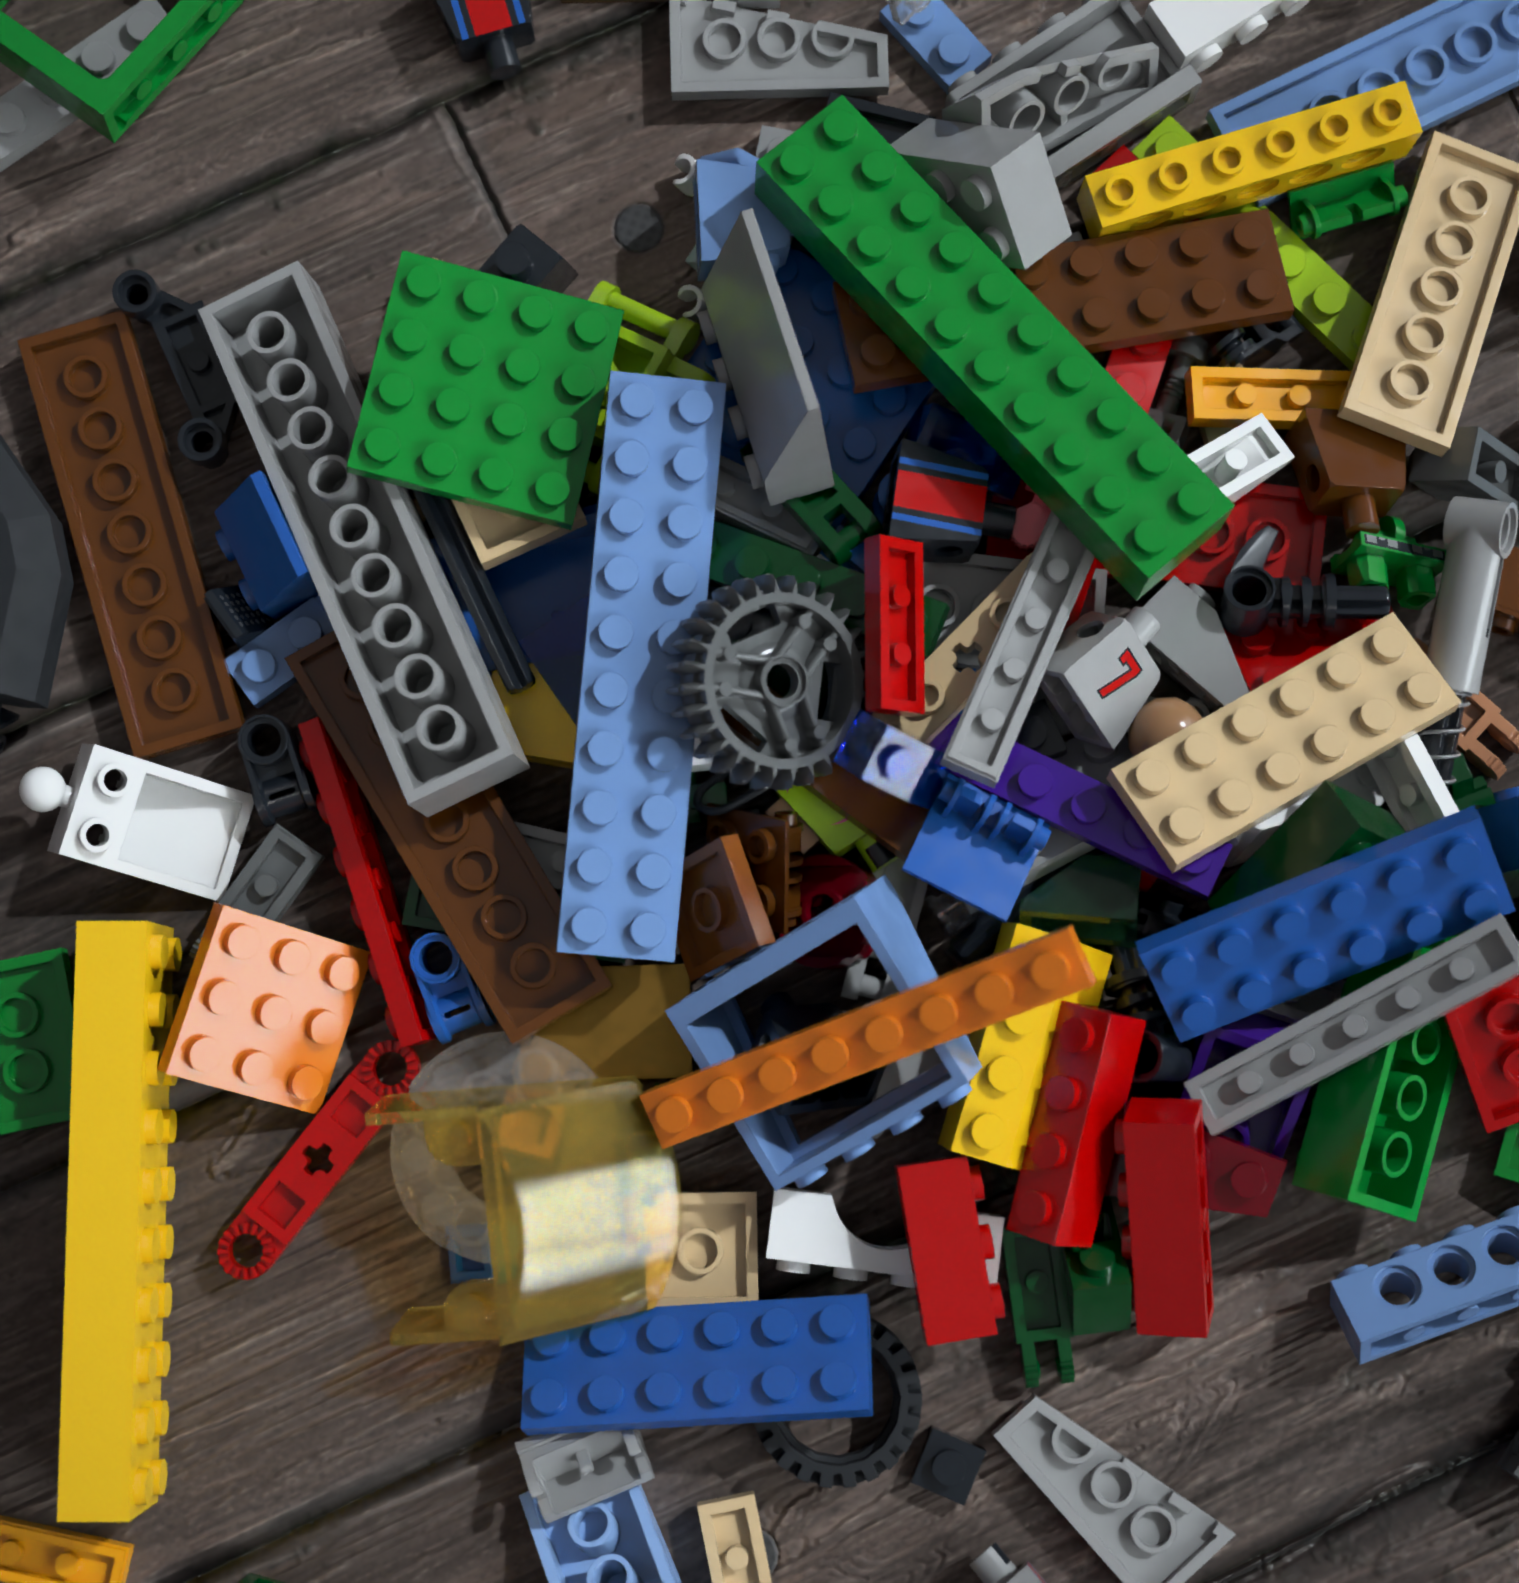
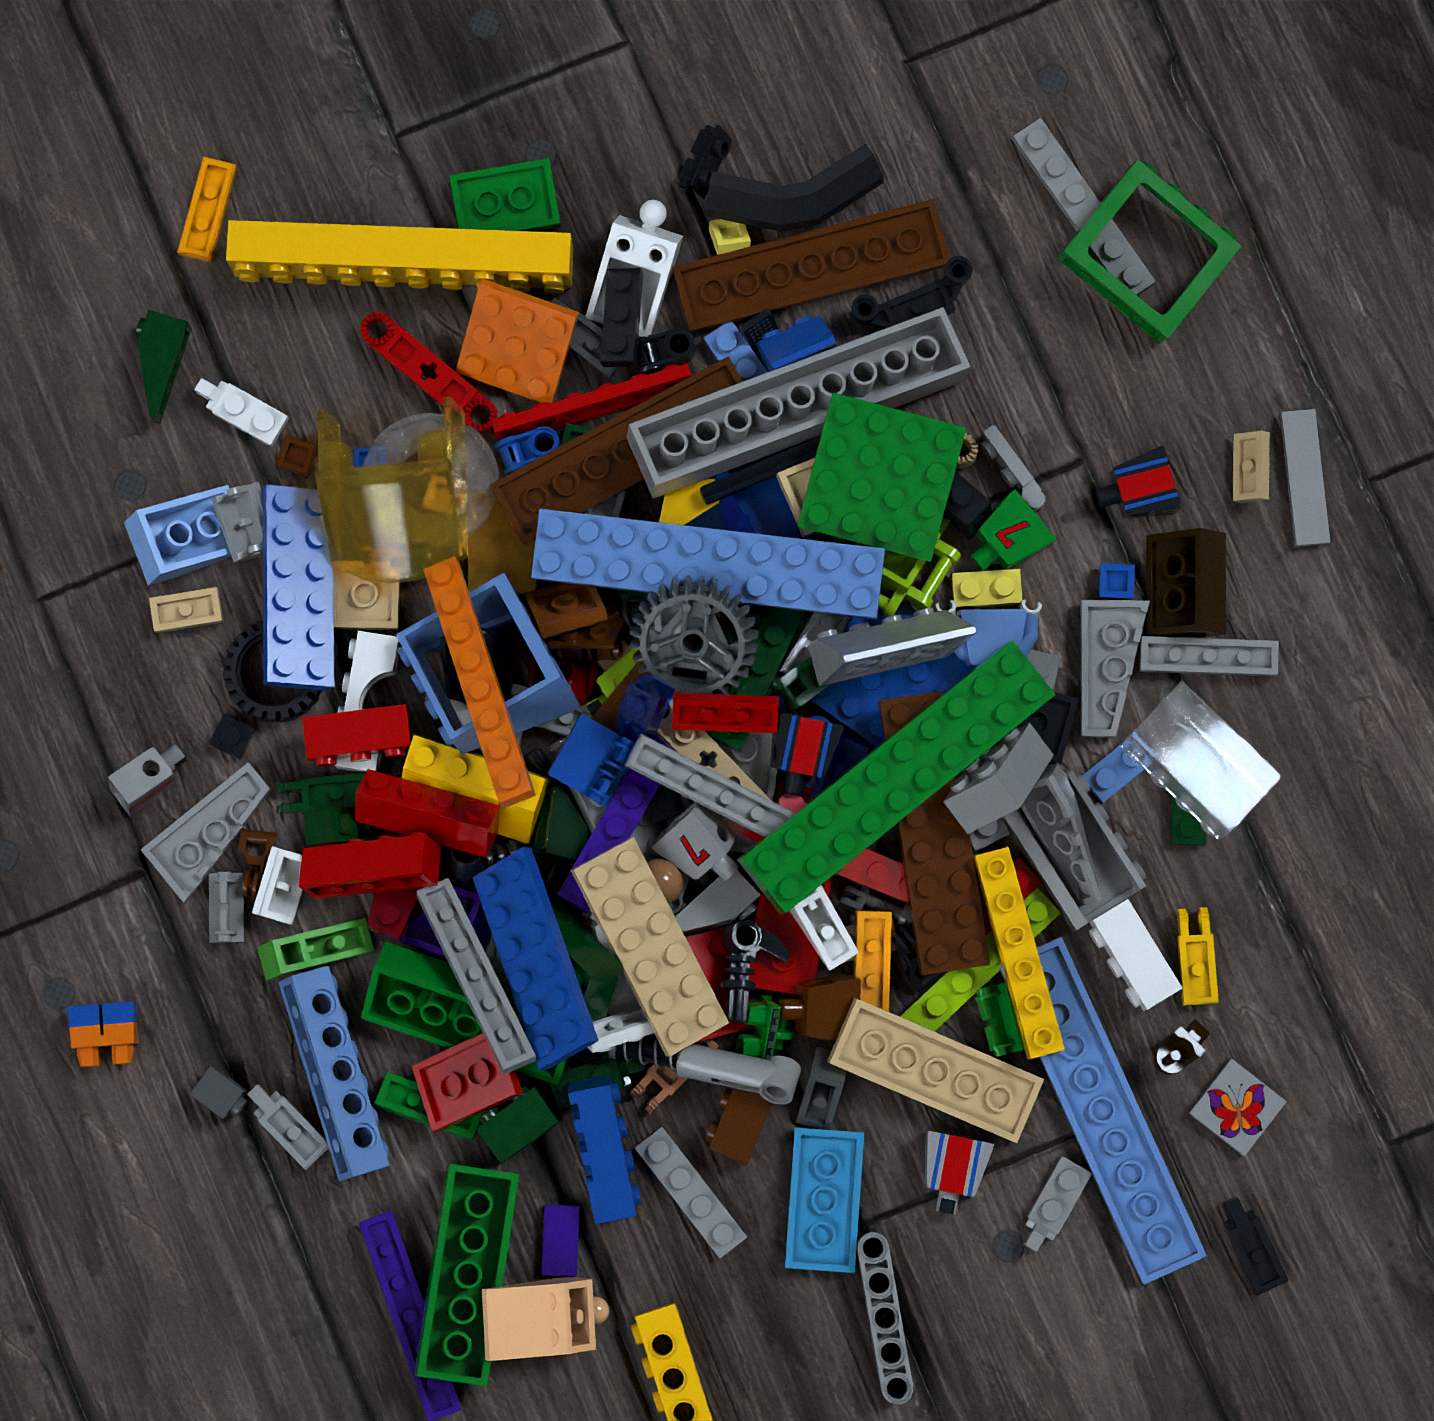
camera: 90 degrees right, 0 degrees up
(81, 669) = (728, 236): none -> light yellow plate
(222, 837) = (621, 317): none -> black plate
(390, 1475) = (243, 411): none -> white hinge
(463, 203) = (1013, 470): none -> light grey hinge
(466, 1378) = (297, 456): none -> reddish brown tile
(568, 202) = (1011, 535): none -> green torso
(638, 42) = (1116, 581): none -> blue plate
(655, 243) = (987, 588): none -> light yellow plate
(1194, 1413) = (250, 883): none -> reddish brown piece
(1199, 1370) = (279, 888): none -> white hinge
(1236, 1459) = (226, 907): none -> light grey hinge
(1300, 1306) = (315, 949): none -> bright green slope

